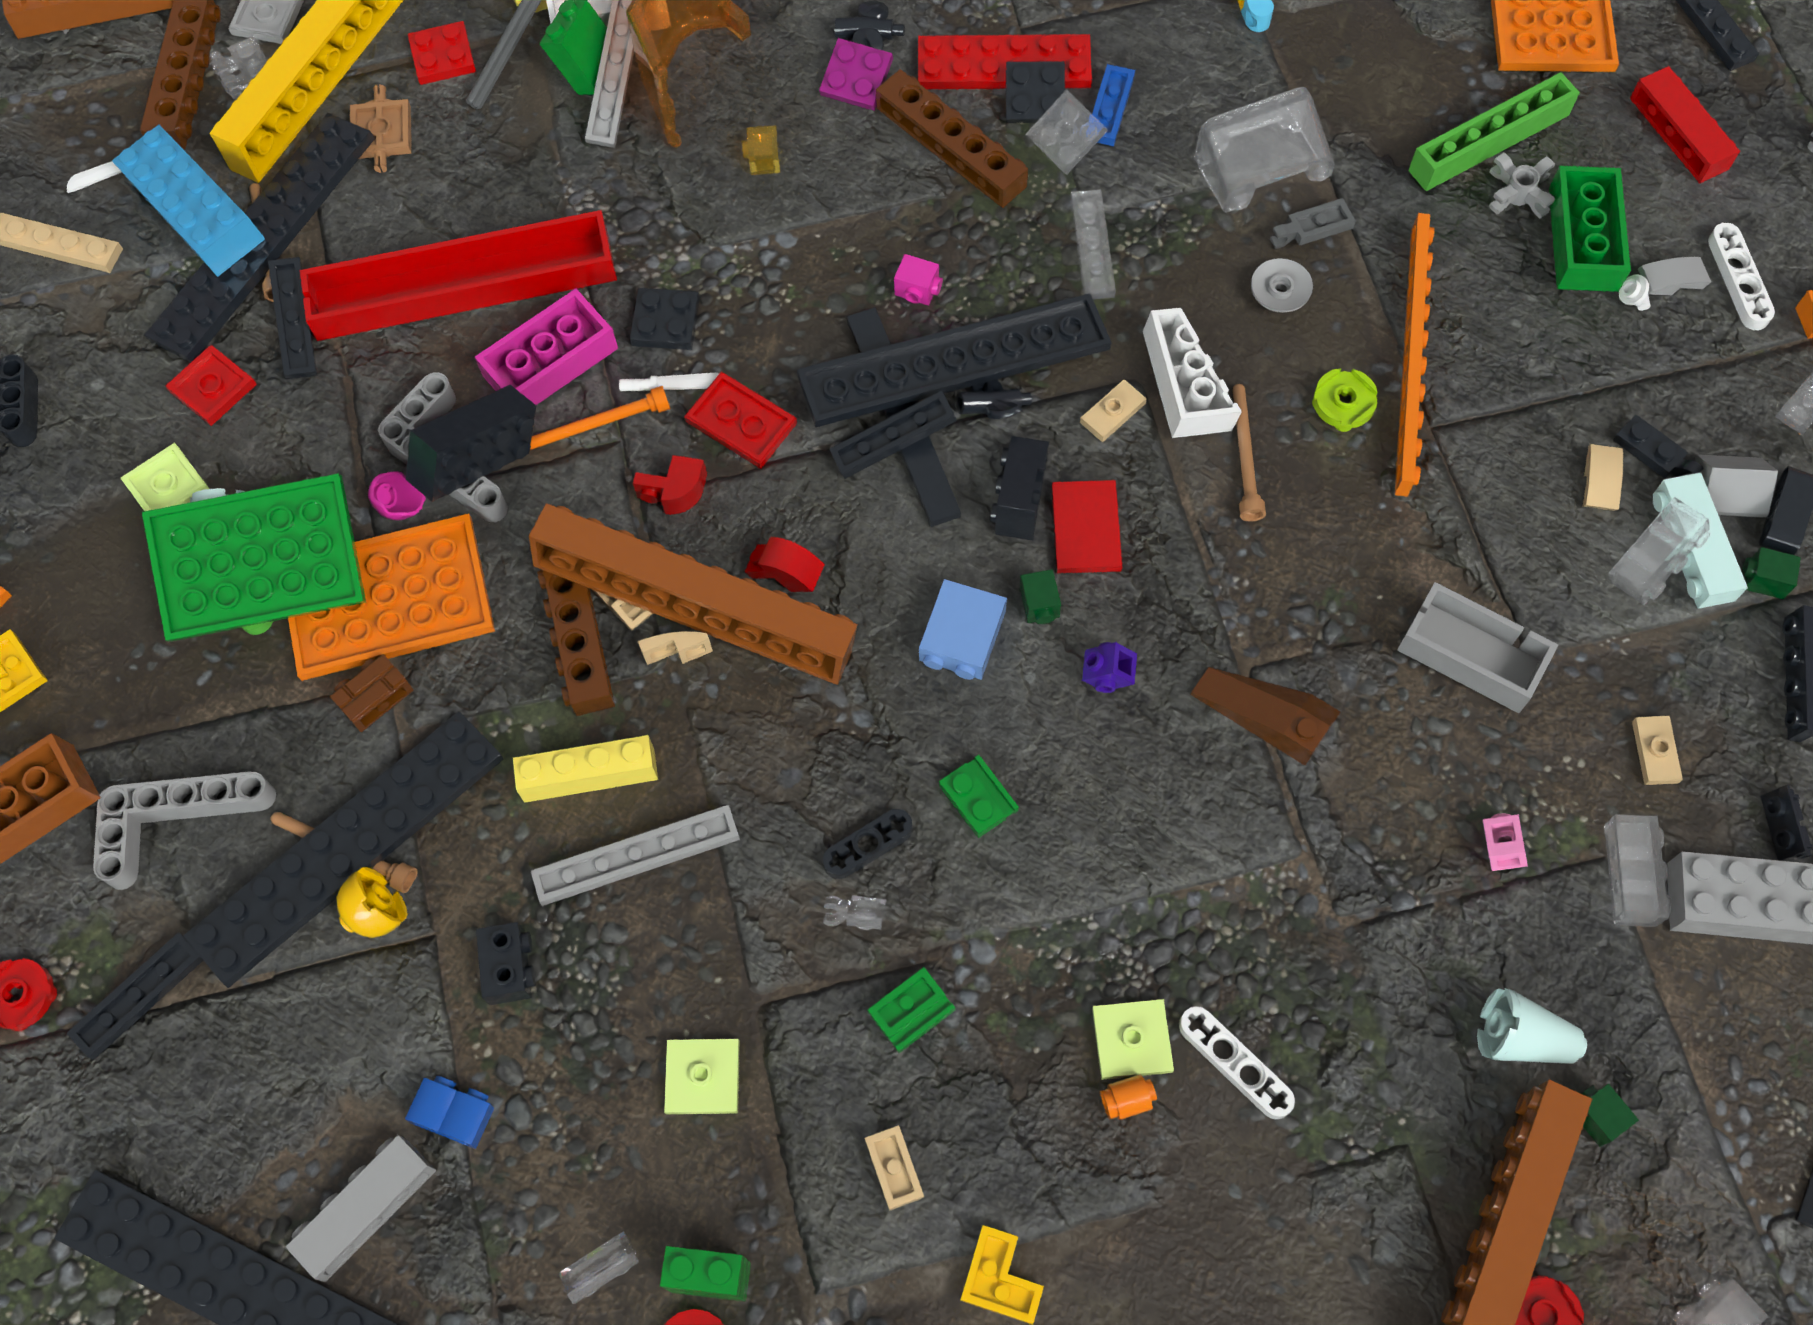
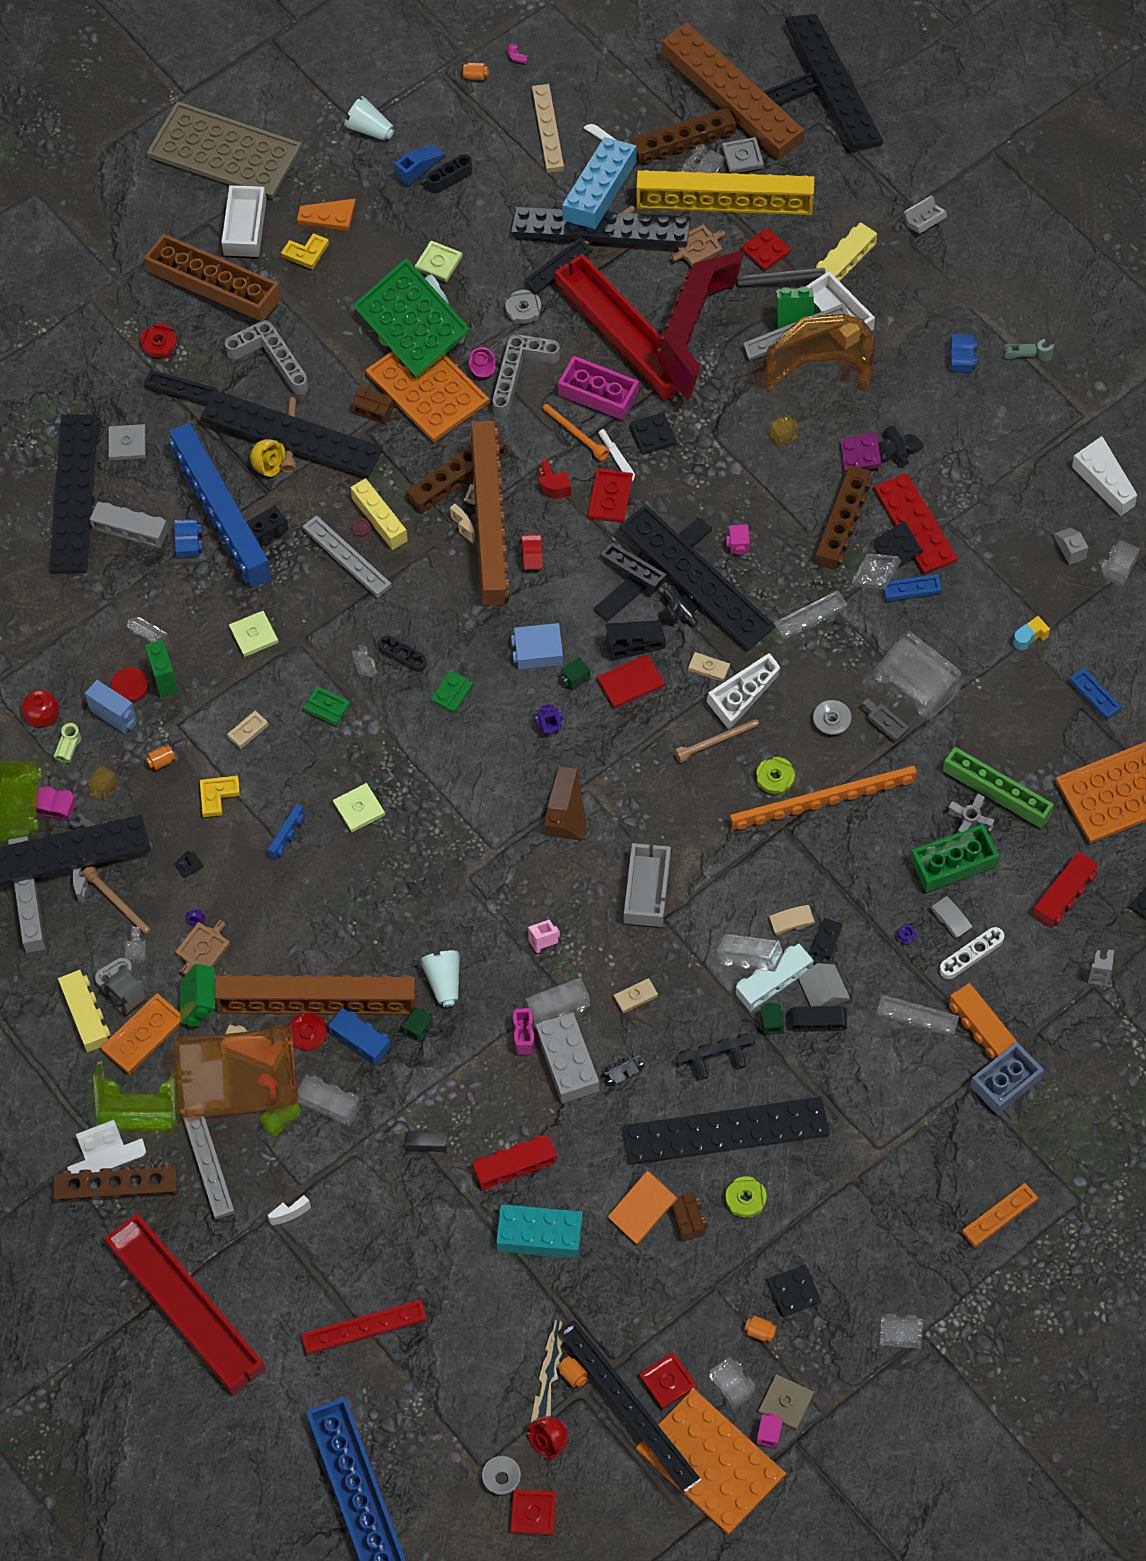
camera: 65 degrees right, 5 degrees down
(186, 1139) = (127, 442): none -> light grey plate
(211, 385) = (503, 251): red plate -> none
(335, 414) = (519, 315): none -> light grey plate
(419, 1025) = (220, 506): none -> blue brick
(470, 442) = (519, 376): black brick -> none
(524, 182) = (702, 280): none -> dark red slope
(591, 809) = (361, 527): none -> clear pink plate
(1128, 1097) = (327, 814): orange brick -> none
(1135, 1184) = (286, 832): none -> blue plate
(1240, 1057) = (371, 857): white beam -> none
(1595, 1224) = (360, 1036): none -> blue brick
(1635, 292) = (927, 900): white plate -> none
(1684, 336) = (906, 929): none -> dark purple plate
(1689, 949) = (523, 1031): none -> dark pink brick

